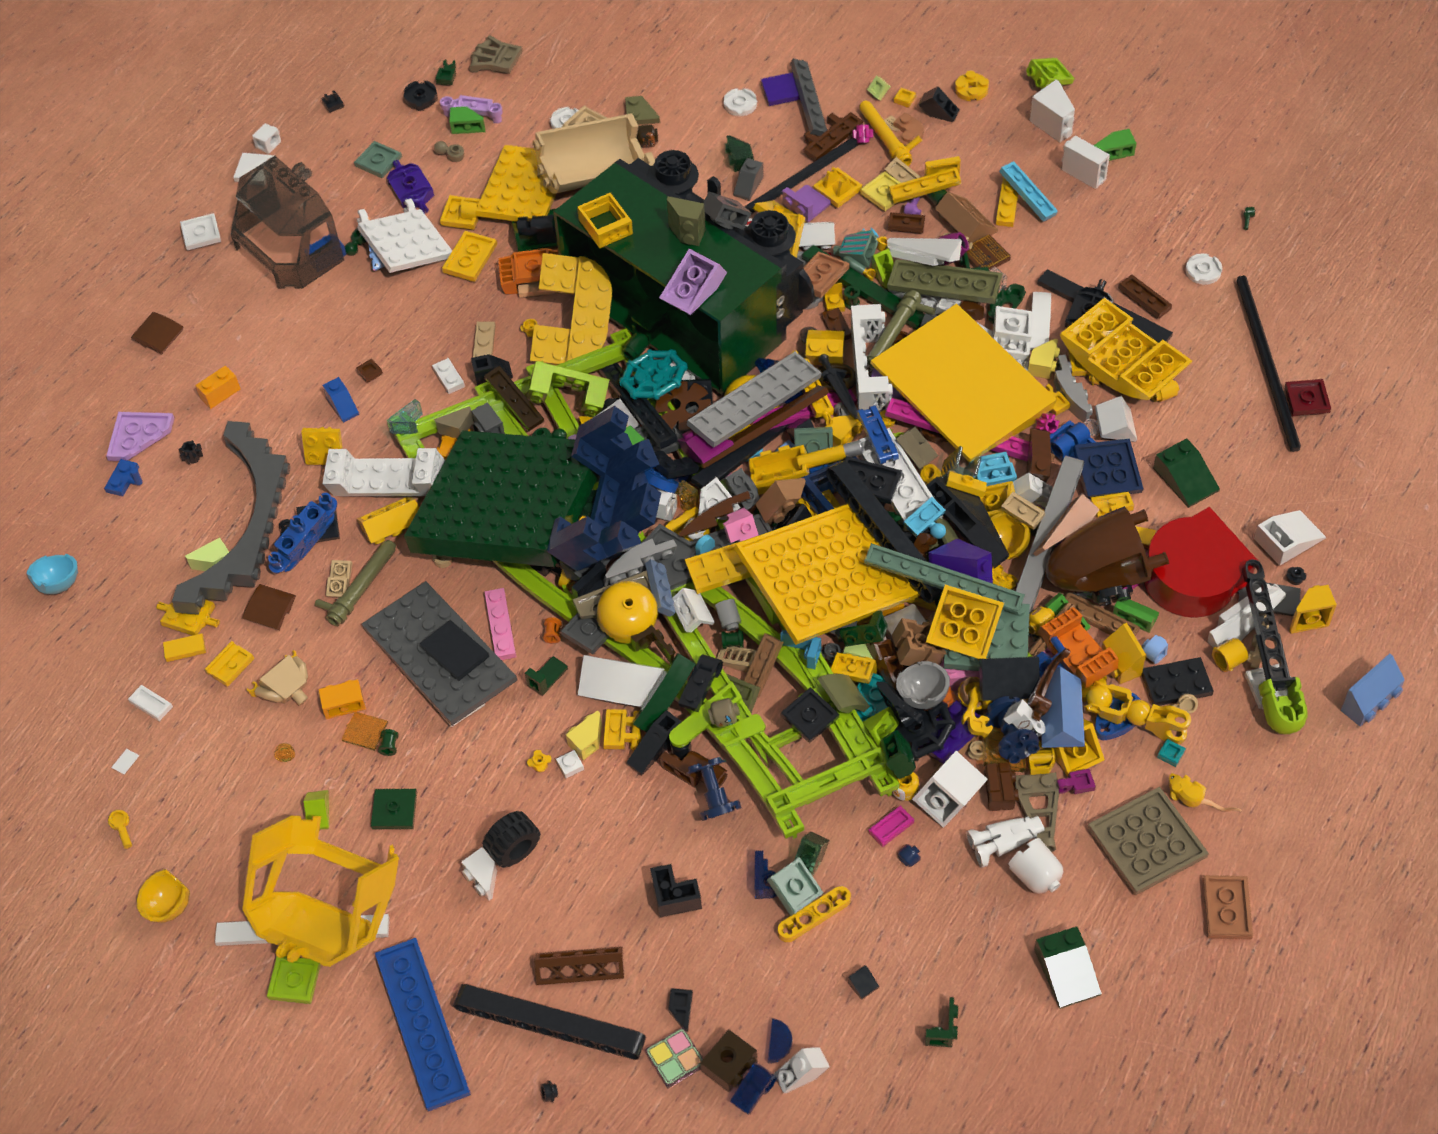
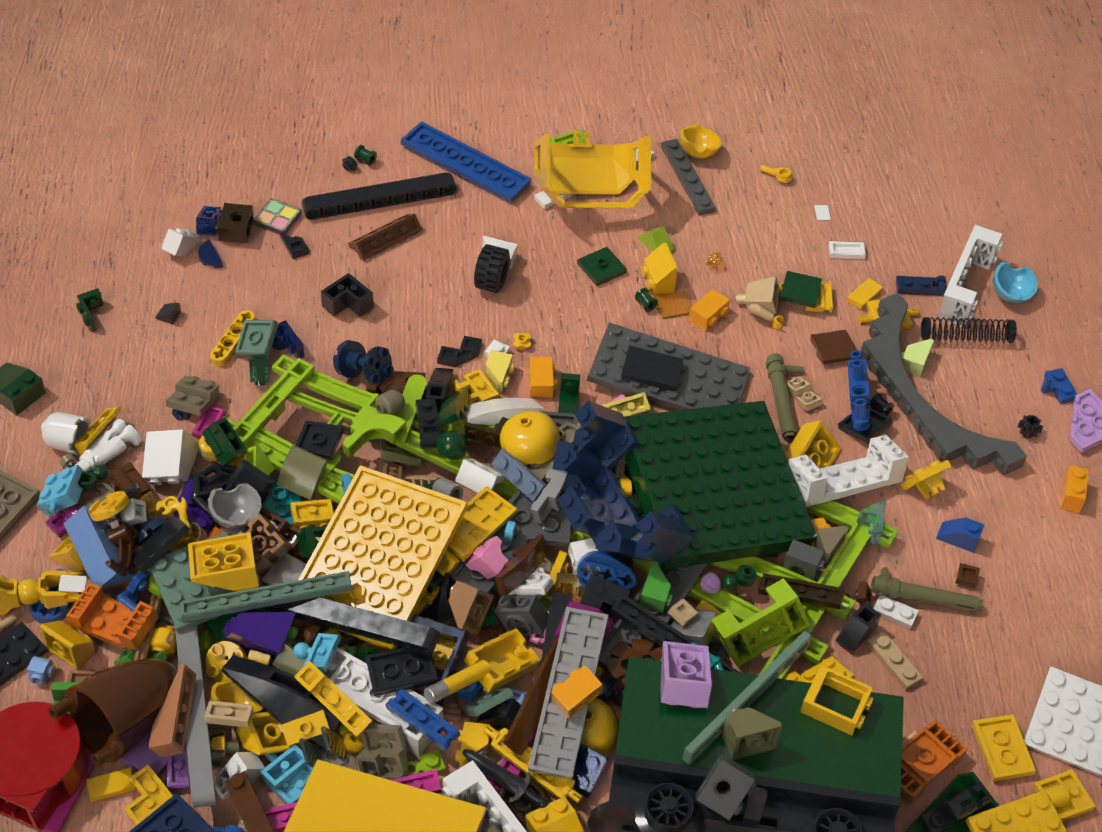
camera: 140 degrees right, 5 degrees down
(87, 607) = (979, 251): none -> white plate
(104, 531) = (1010, 329): none -> black piece
(126, 629) = (921, 285): none -> dark blue plate
(210, 876) = (688, 177): none -> dark grey plate
(242, 669) = (800, 289): none -> dark green tile
(350, 757) = (660, 271): none -> yellow slope
(435, 381) = (895, 588): none -> olive cylinder
(462, 392) = (863, 594): none -> reddish brown plate
(512, 634) = (630, 405): none -> light yellow slope
(523, 1093) = (365, 155): none -> dark green bush
(553, 708) = (541, 377): none -> light orange brick
(595, 780) = (454, 357): none -> black tile
(662, 250) = (748, 696): none -> sand green tile
(695, 645) = (452, 445): none -> dark green hair
(754, 382) = (576, 691): none -> light orange brick
(756, 697) = (373, 427): none -> lime arch
(893, 853) = (193, 395): none -> dark tan plate
(931, 478) = (333, 698): none -> yellow slope
(998, 859) = (96, 429): none -> yellow slope
(1024, 809) = (88, 479): none -> dark green plate
(1041, 714) = (111, 506): none -> yellow tile
(1070, 803) = (60, 490): none -> medium azure plate
(1100, 687) = (77, 583): none -> white sticker

